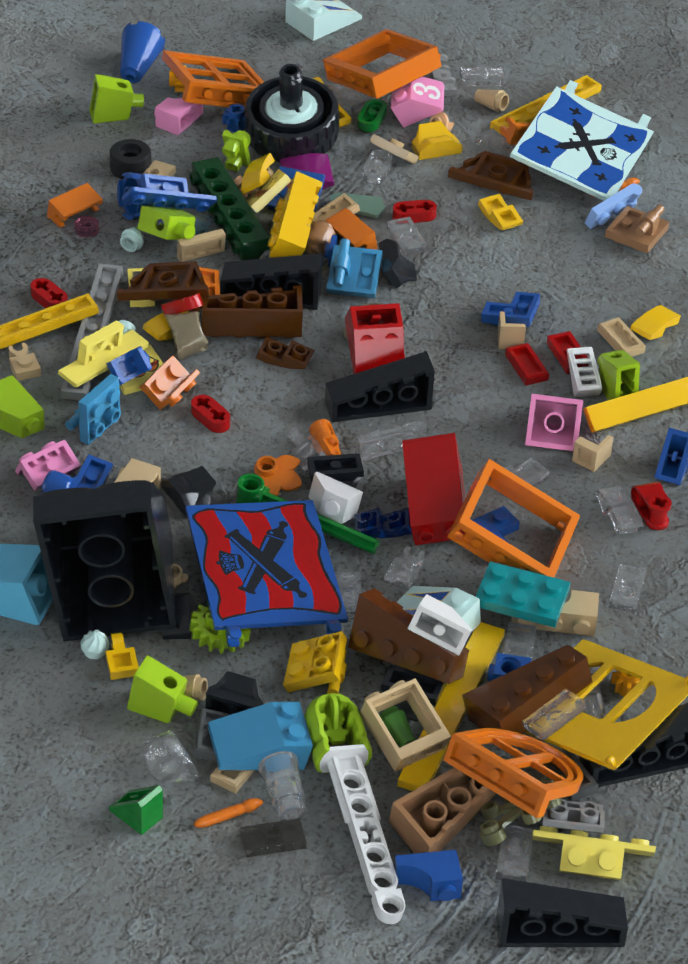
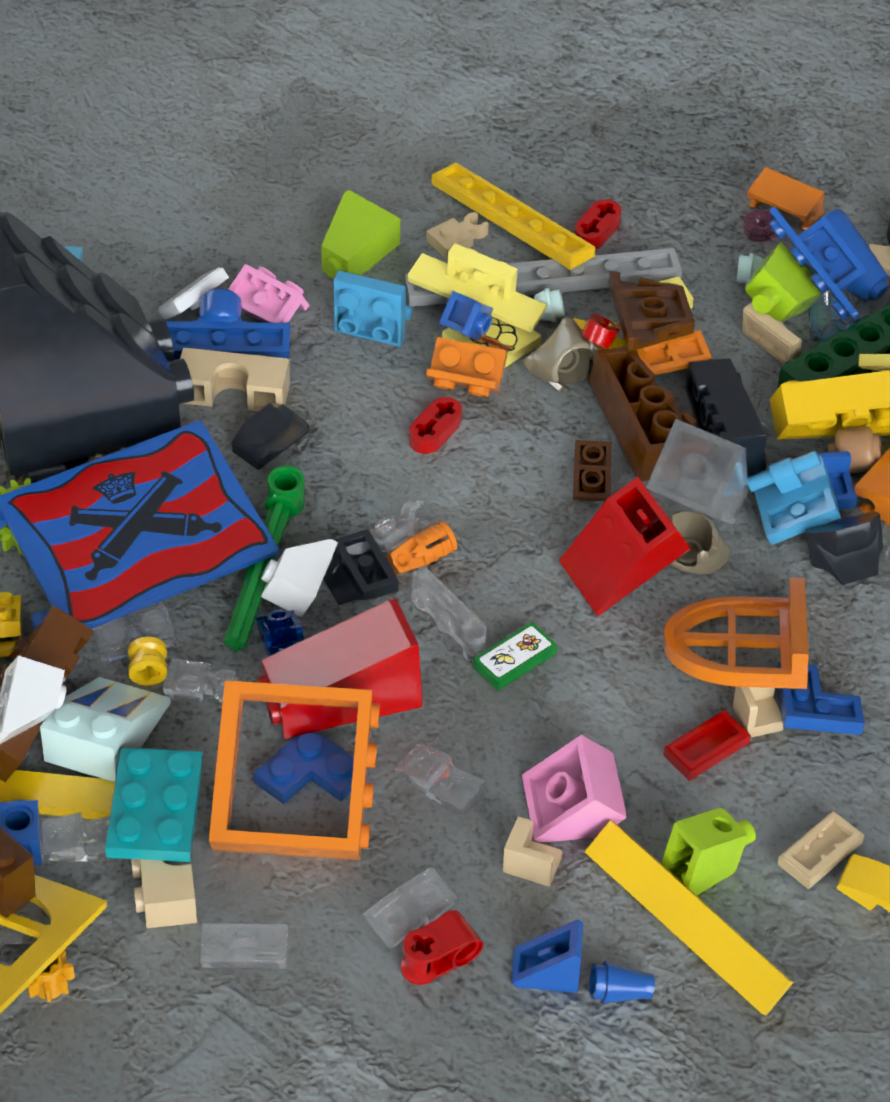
camera: 75 degrees right, 5 degrees up
(20, 497) = (191, 294): none -> white plate
(279, 473) = (339, 513): orange plate -> none
(338, 288) = (701, 472): none -> clear slope
(382, 390) = (544, 582): black wedge -> none
(384, 585) = (147, 661): none -> yellow wheel
(431, 417) = (514, 656): none -> tile
(467, 295) = (791, 641): none -> orange window
(559, 344) = (751, 786): red plate -> none
(580, 389) = (682, 804): white slope -> none

